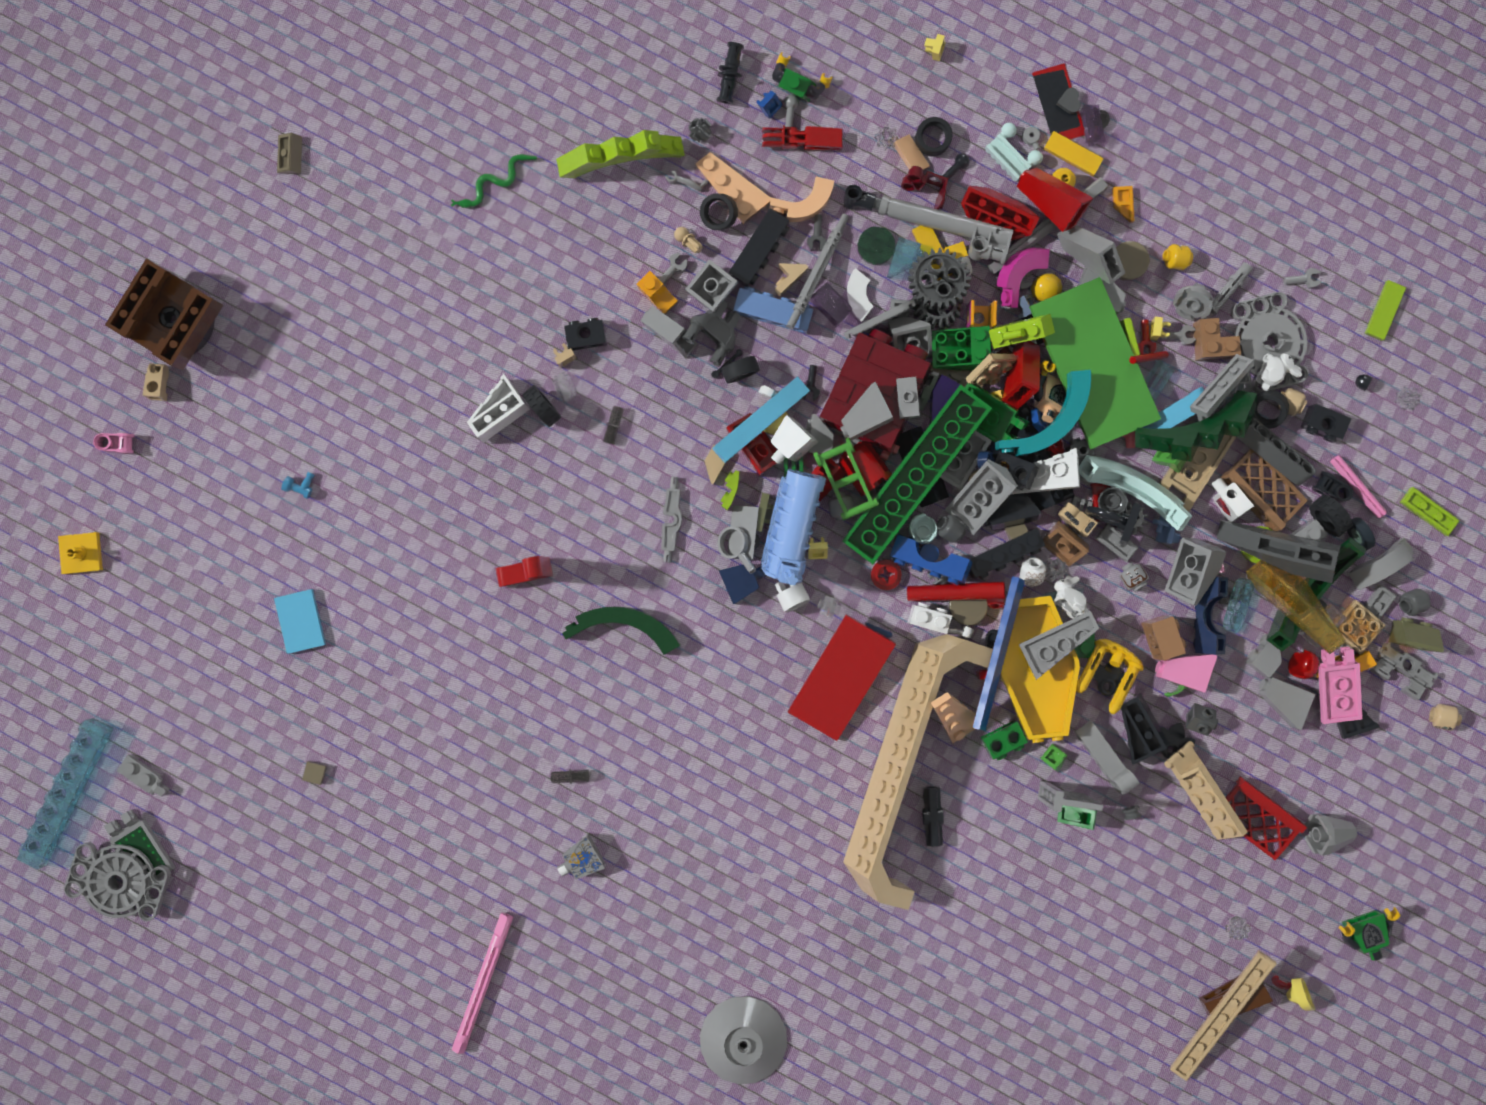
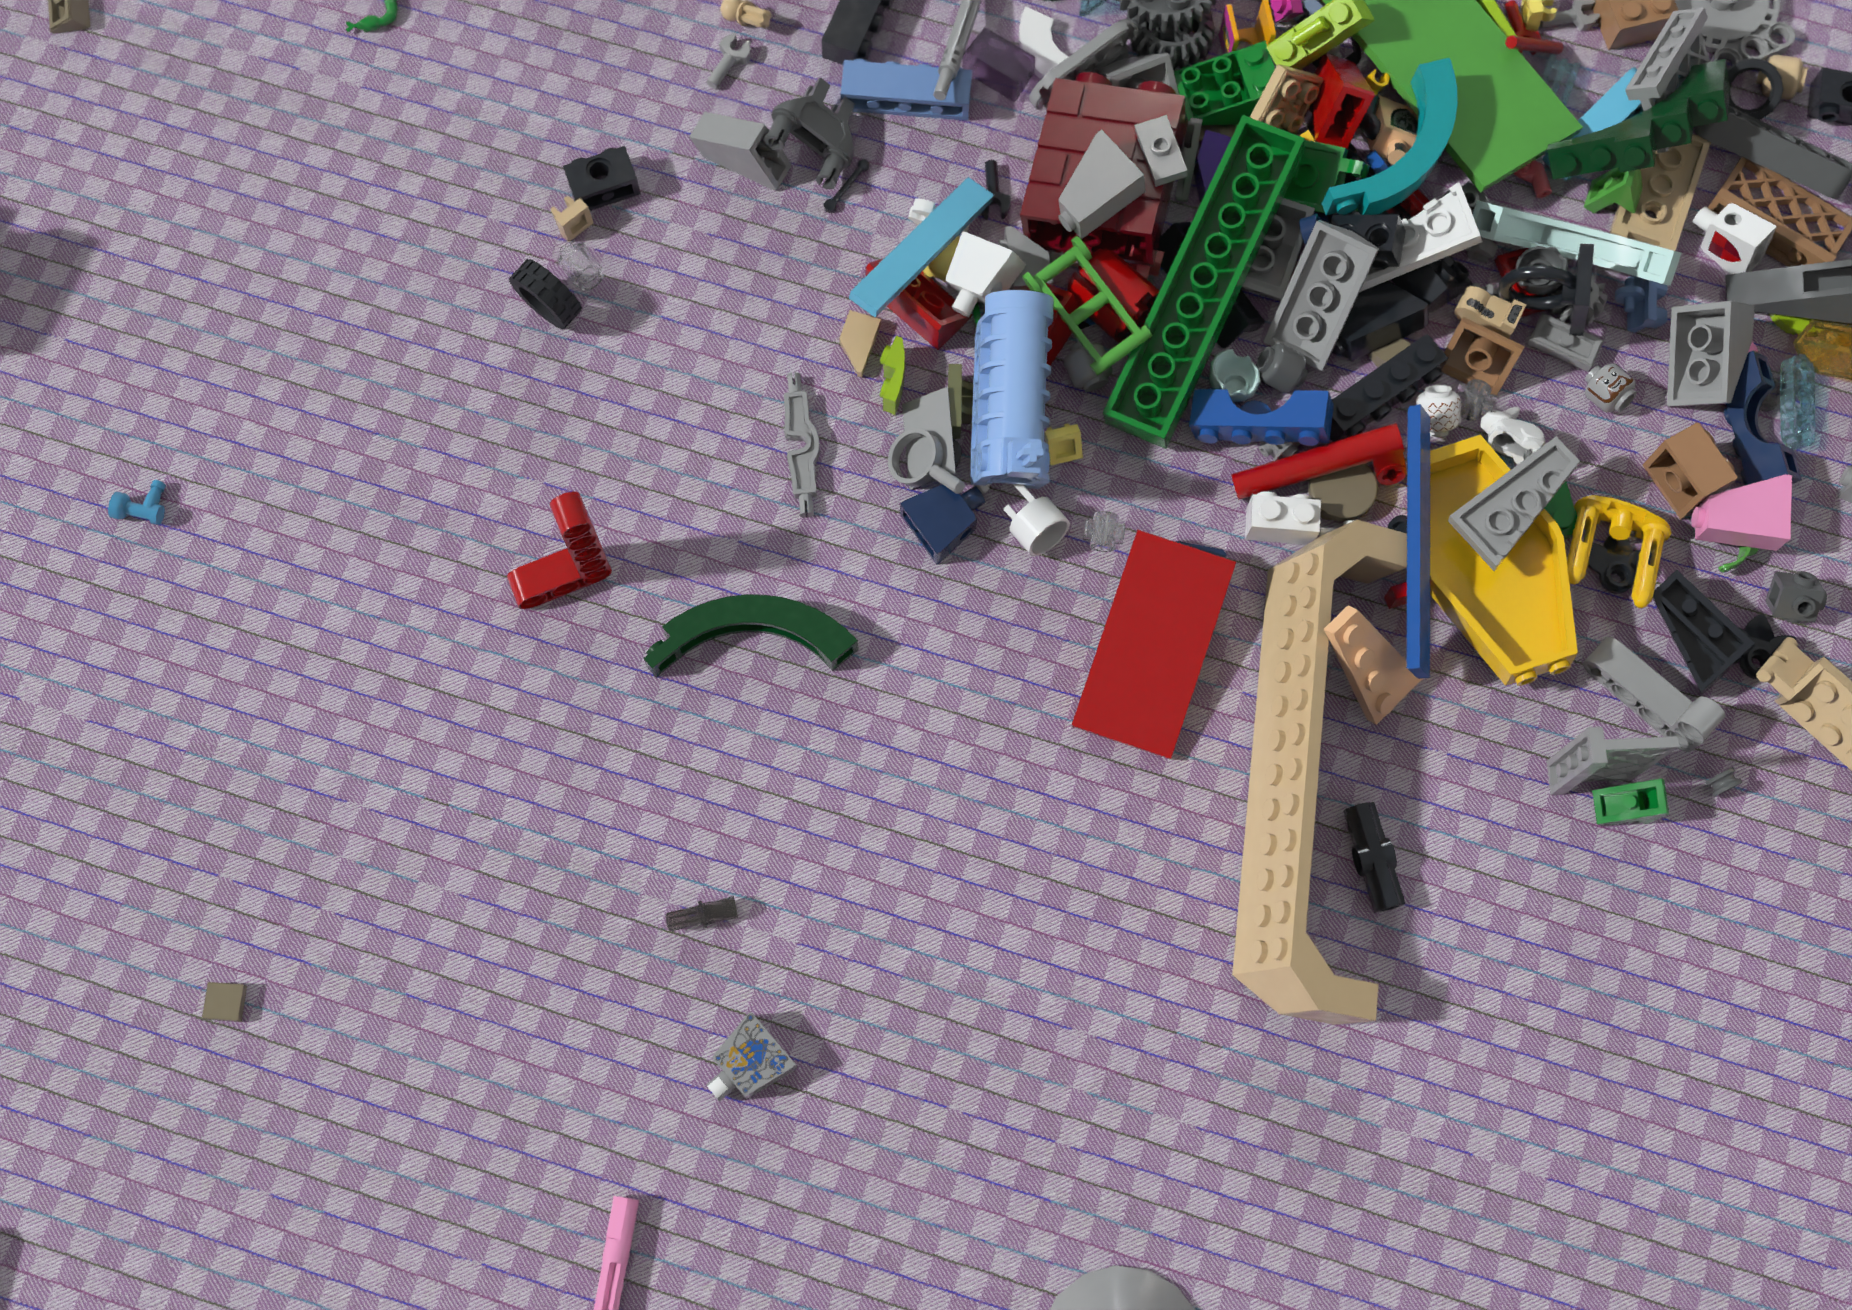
camera: 10 degrees left, 15 degrees down
(299, 621) = (167, 735): medium azure tile -> none
(498, 410) = (472, 318): white wedge -> none
(613, 425) = (673, 312): clear smoke axle -> none
(656, 292) = (702, 92): light orange arch -> none
(711, 286) = (795, 63): light grey slope -> none
(740, 369) = (871, 181): black tyre -> none
(793, 273) = (924, 32): tan slope -> none
(893, 580) = (1195, 452): red gear -> none
(1002, 734) = (1461, 694): green brick -> none
(1054, 757) = (1560, 716): bright green slope -> none
(1274, 370) = (1741, 29): white animal -> none

